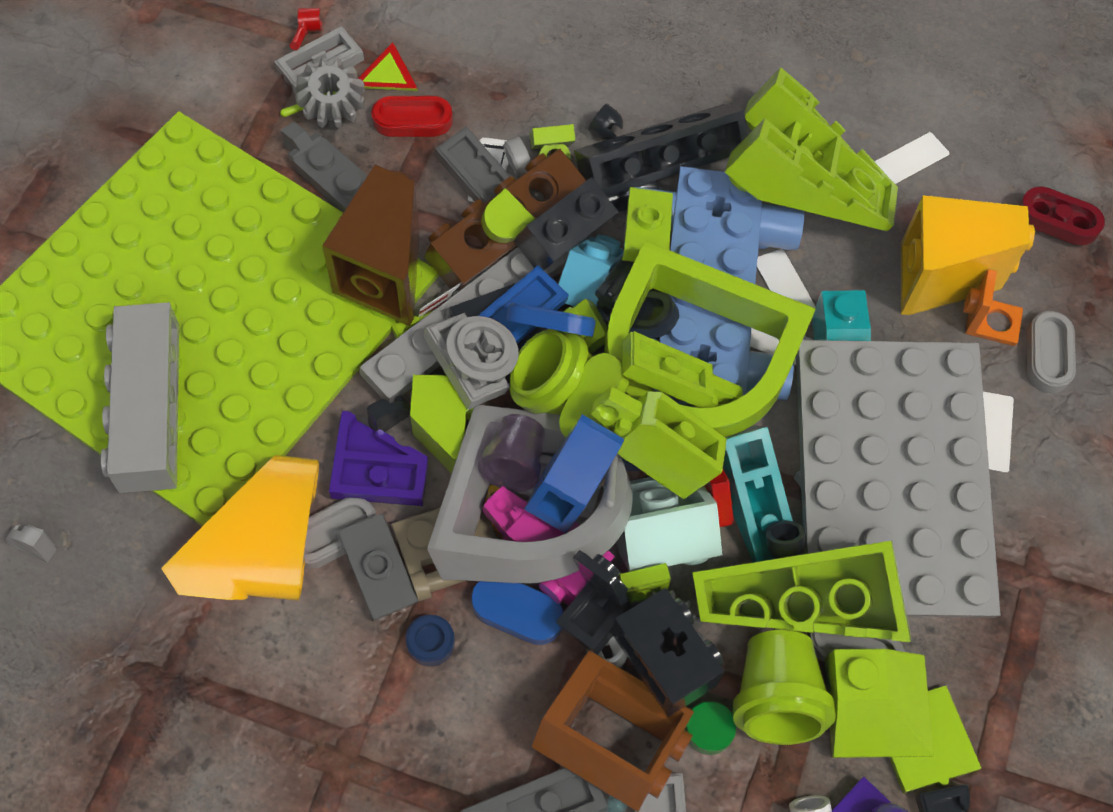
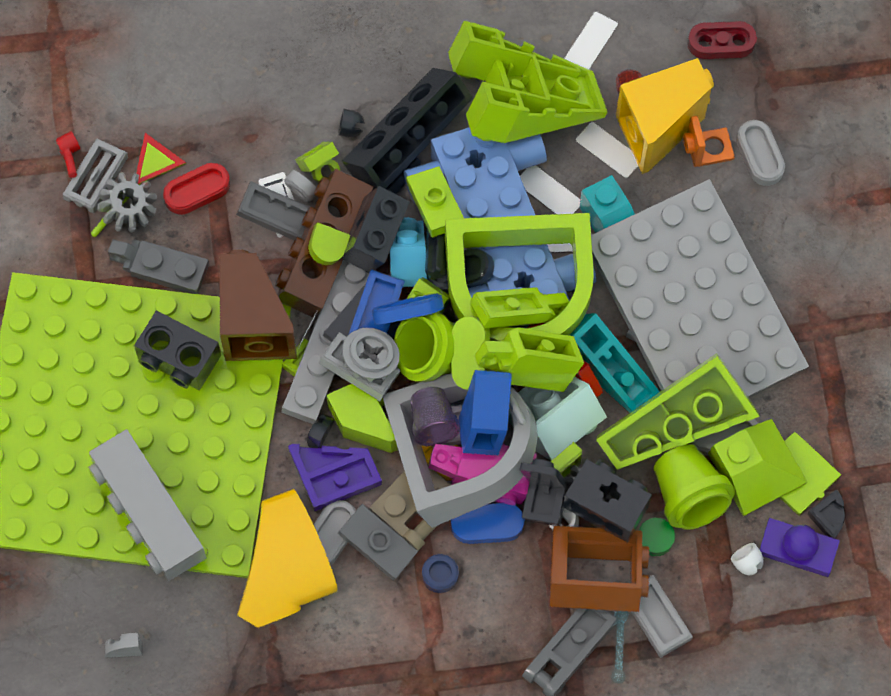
camera: 25 degrees left, 5 degrees up
(288, 252) = (183, 343): none -> black brick
(791, 537) = (647, 381): black hinge -> none
(875, 272) = (608, 149): none -> white sticker
(998, 429) = (749, 231): white sticker -> none

